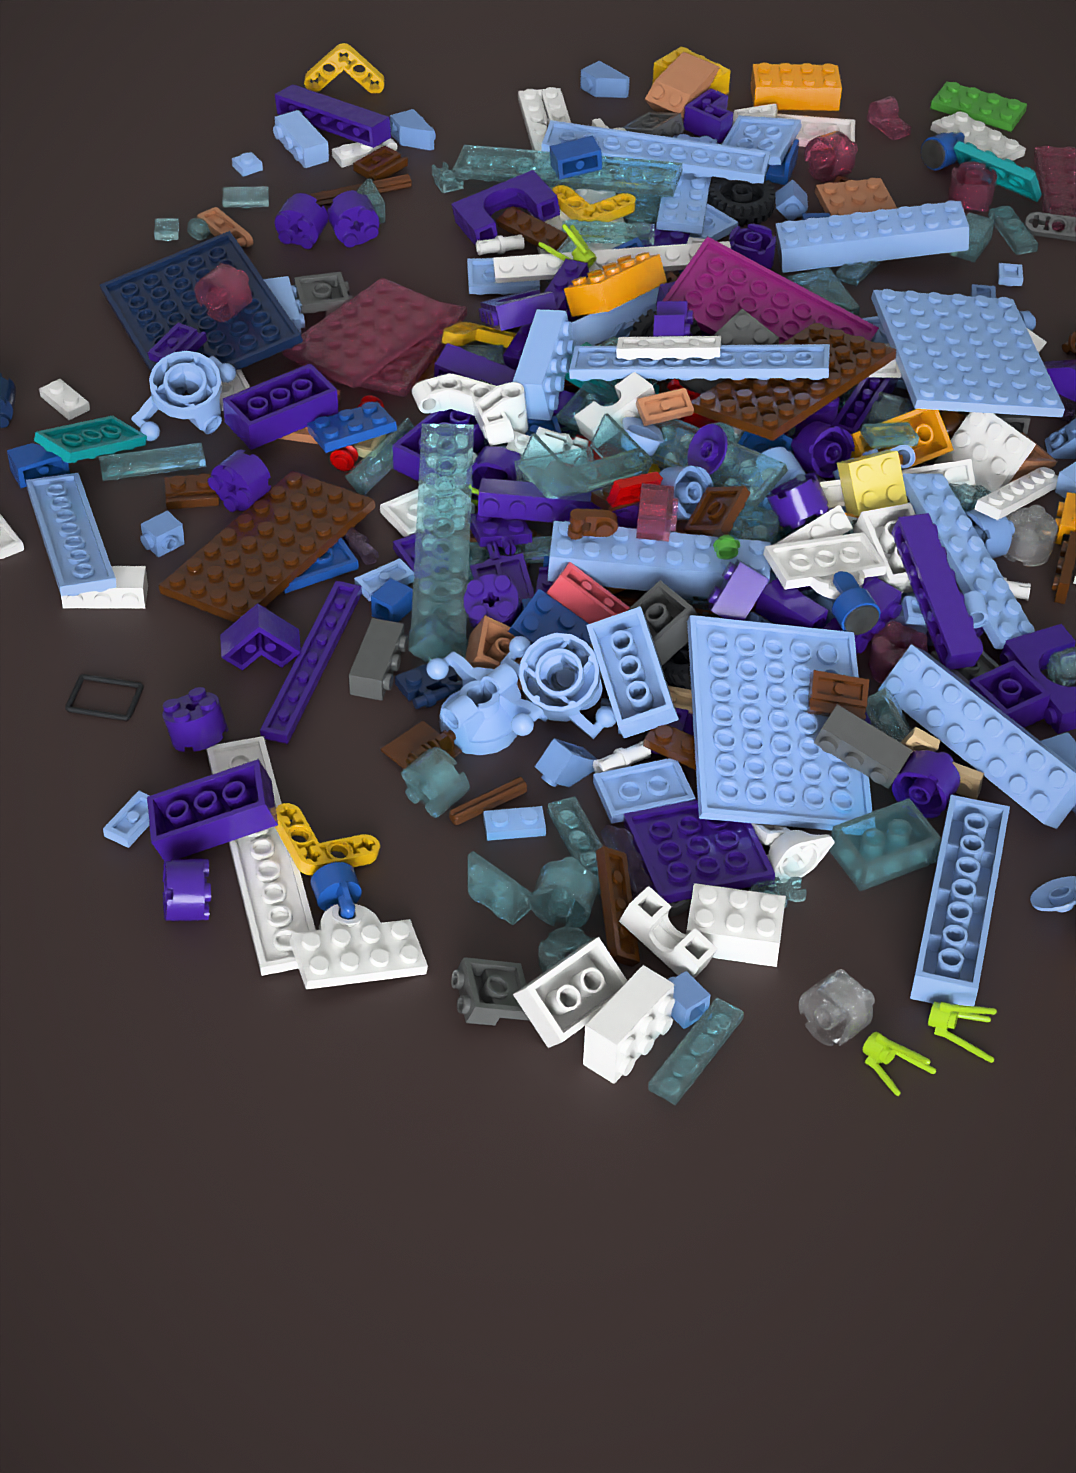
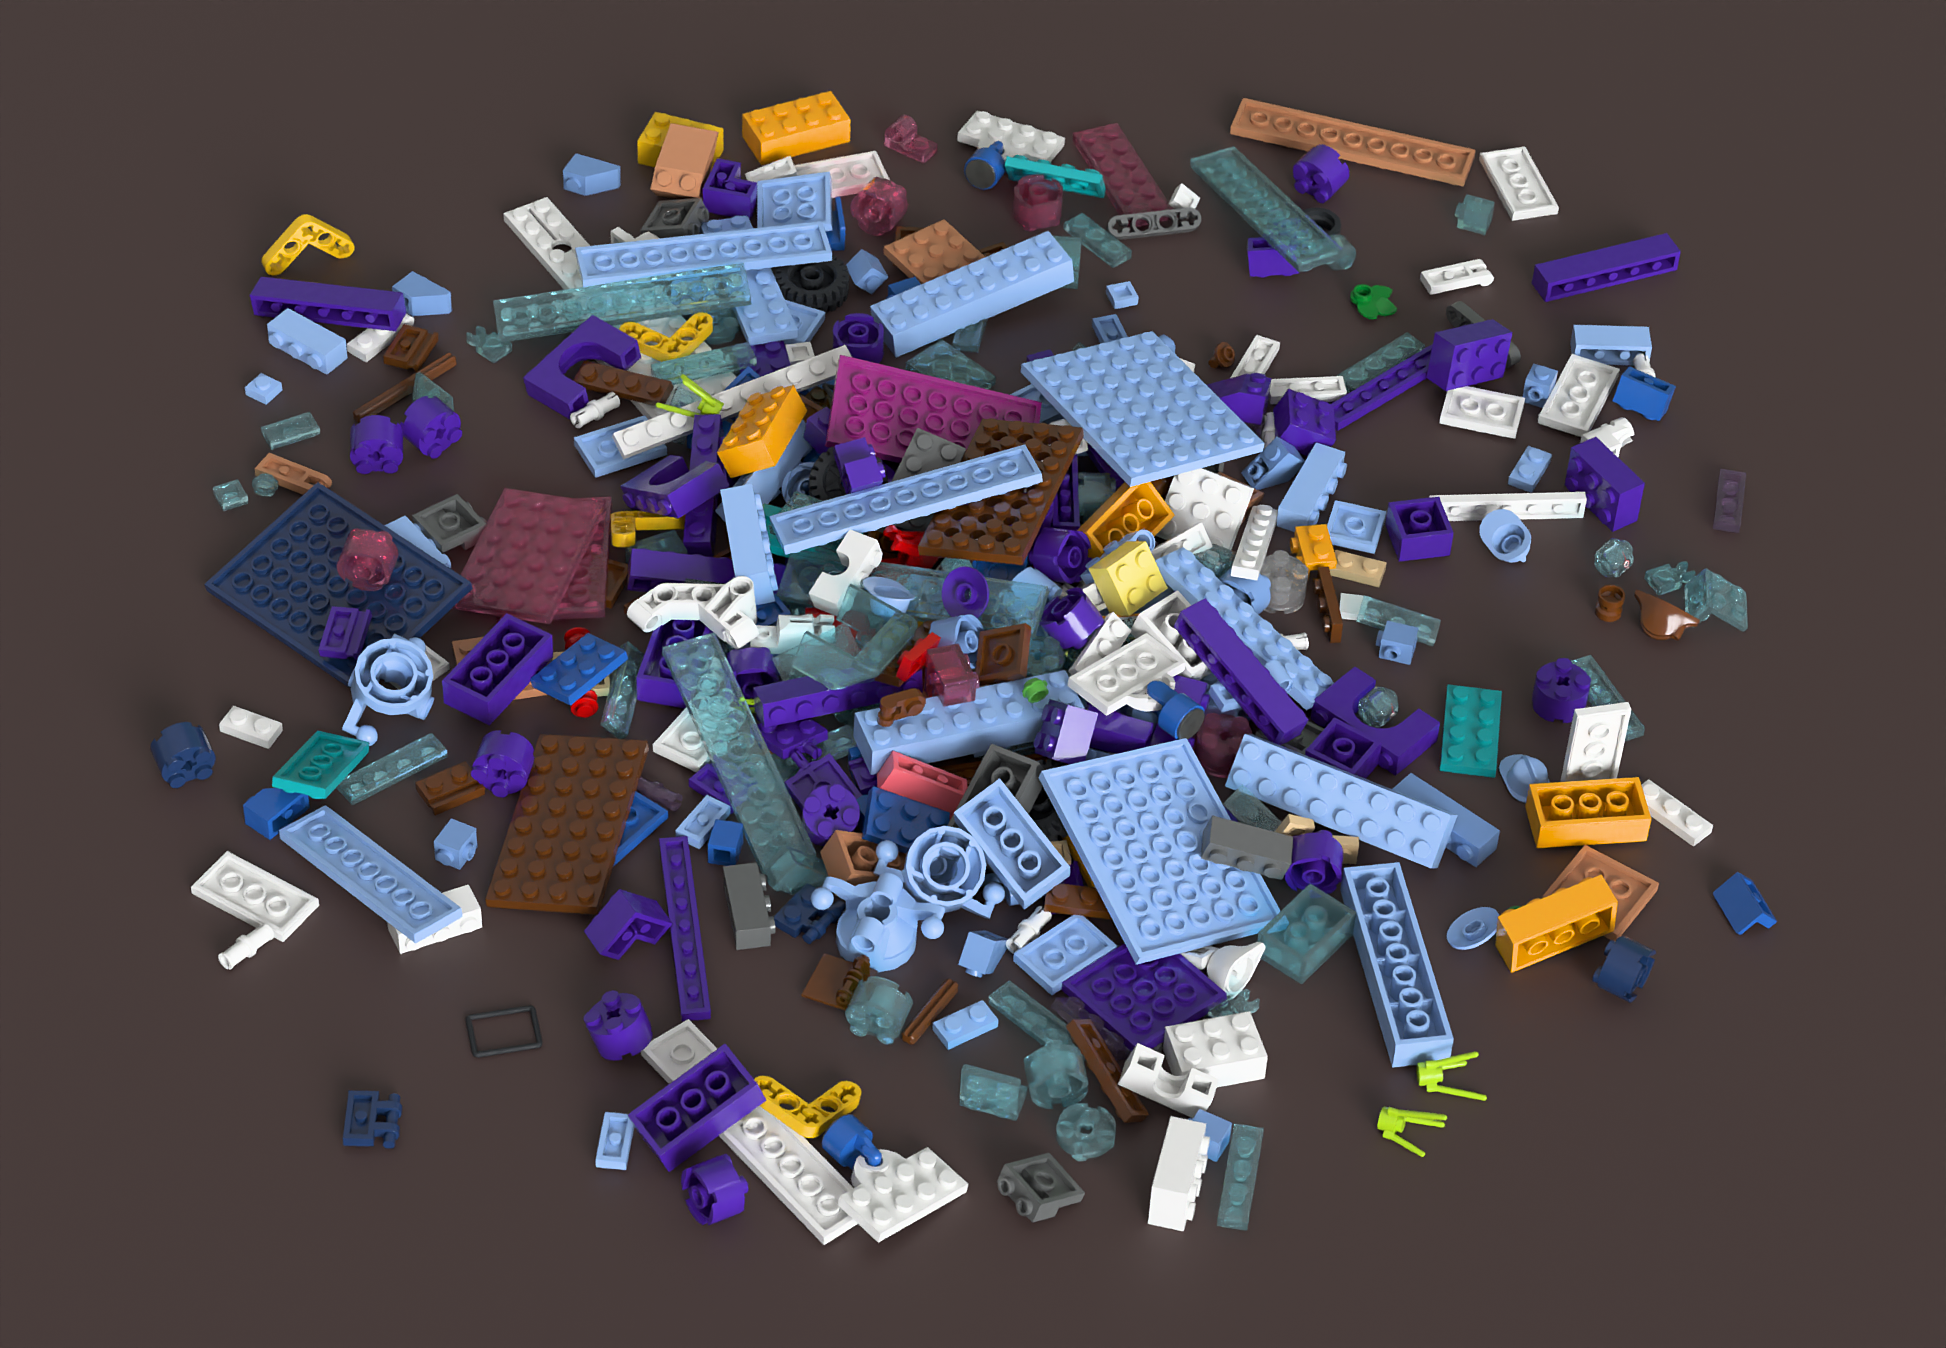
camera: 25 degrees left, 0 degrees up
(571, 992) = (1115, 1162): white brick -> none
(576, 157) = (632, 288): blue brick -> none
(664, 406) = (897, 558): nougat plate -> none
(669, 347) = (873, 493): white plate -> none
(831, 689) = (1198, 804): reddish brown plate -> none
(836, 1008) = (1342, 1097): clear brick -> none
(889, 435) = (1120, 522): clear light blue plate -> none
(979, 105) = (989, 95): bright green plate -> none

